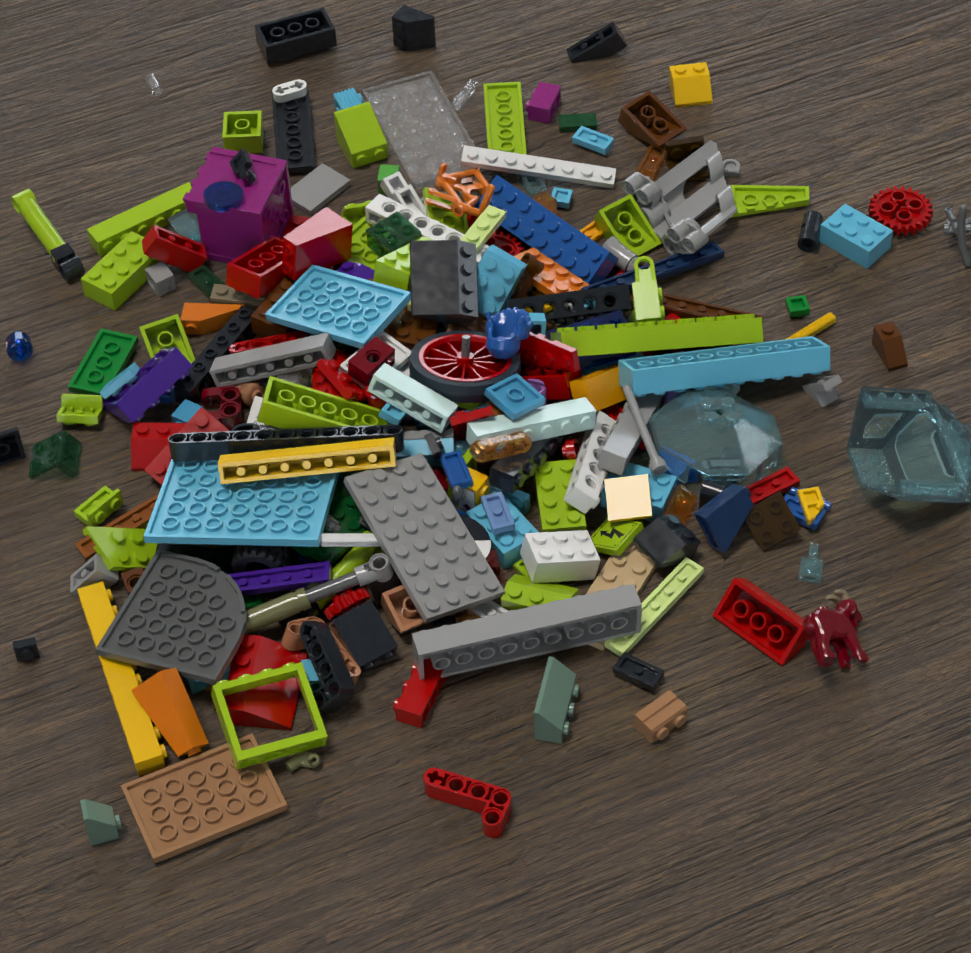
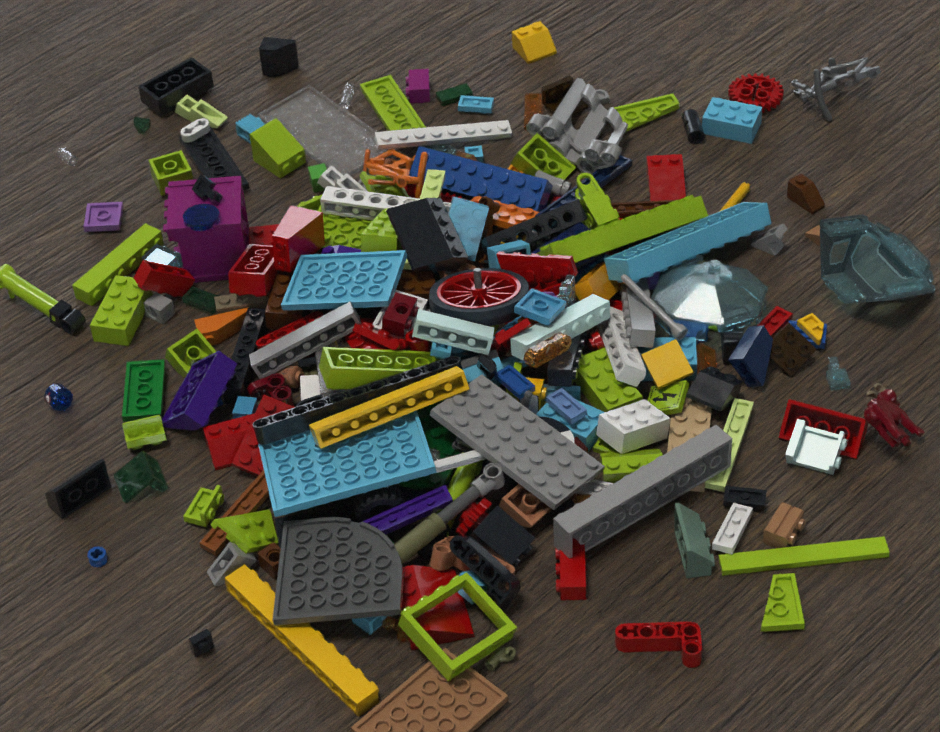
camera: 20 degrees left, 5 degrees down
(114, 386) = (169, 401): medium azure plate -> none
(156, 161) = (103, 216): none -> medium lavender plate
(172, 712) = (368, 650): orange slope -> none
(244, 68) = (141, 124): none -> clear green tile
(307, 70) = (194, 110): none -> yellowish green slope
(318, 189) = (261, 200): light grey tile -> none
(391, 234) = (354, 217): clear green bracket -> none
(506, 332) = (507, 258): blue hair -> none
(557, 388) = (567, 291): none -> clear light blue plate
(600, 44) = (440, 31): black slope -> none
(606, 701) = (732, 528): none -> white plate
(615, 802) = (783, 605): none -> lime wing
(650, 120) = (517, 76): reddish brown slope -> none
(667, 755) = (803, 555): none -> lime tile
(739, 640) = (815, 448): none -> light aqua panel
(748, 283) = (665, 177): none -> red slope
(797, 306) = (714, 184): green plate -> none

